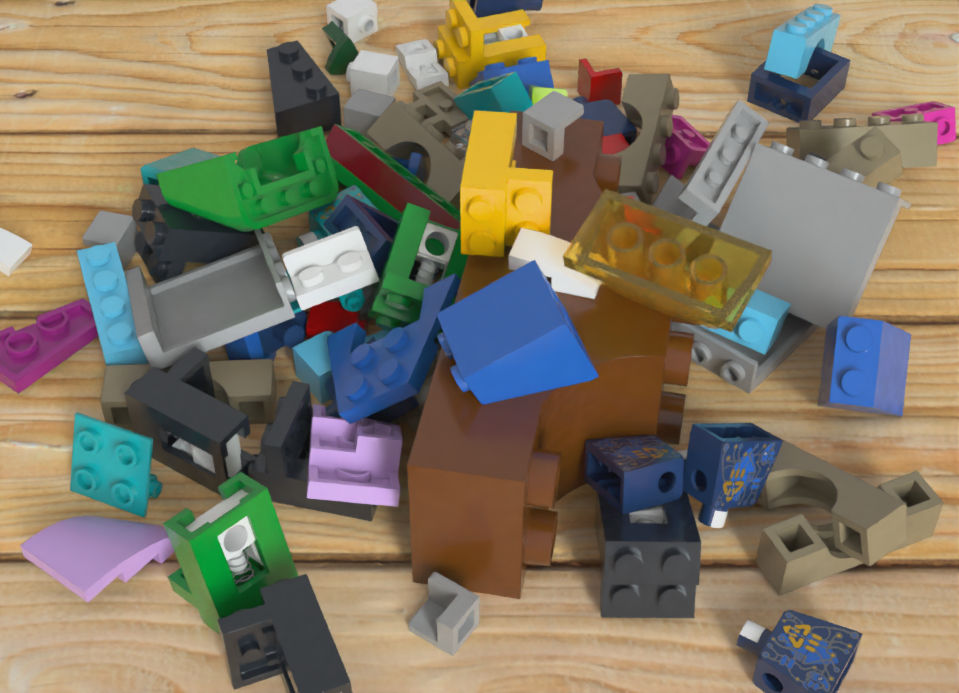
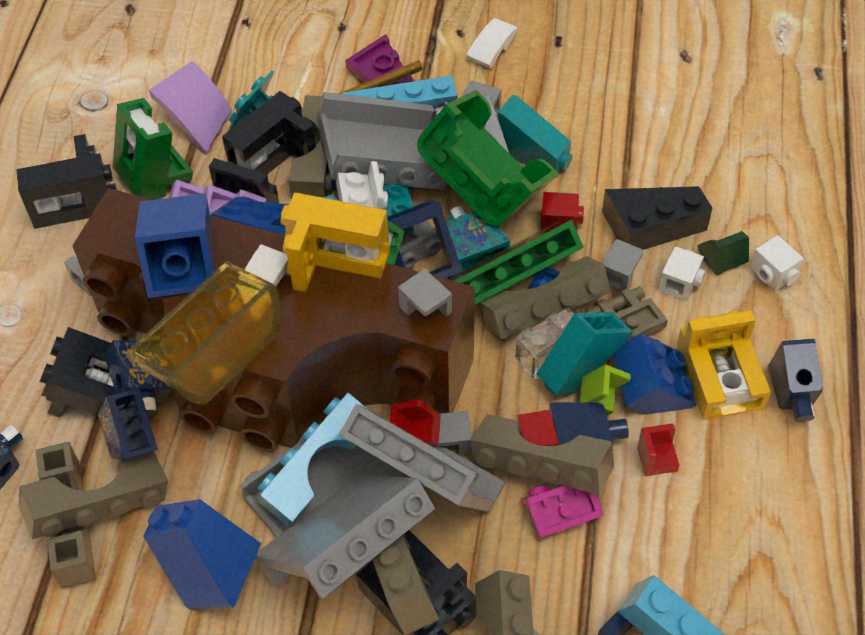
camera: 100 degrees right, 10 degrees up
(76, 344) = (390, 77): none -> pearl gold bar
(421, 64) = (711, 306): white slope -> none

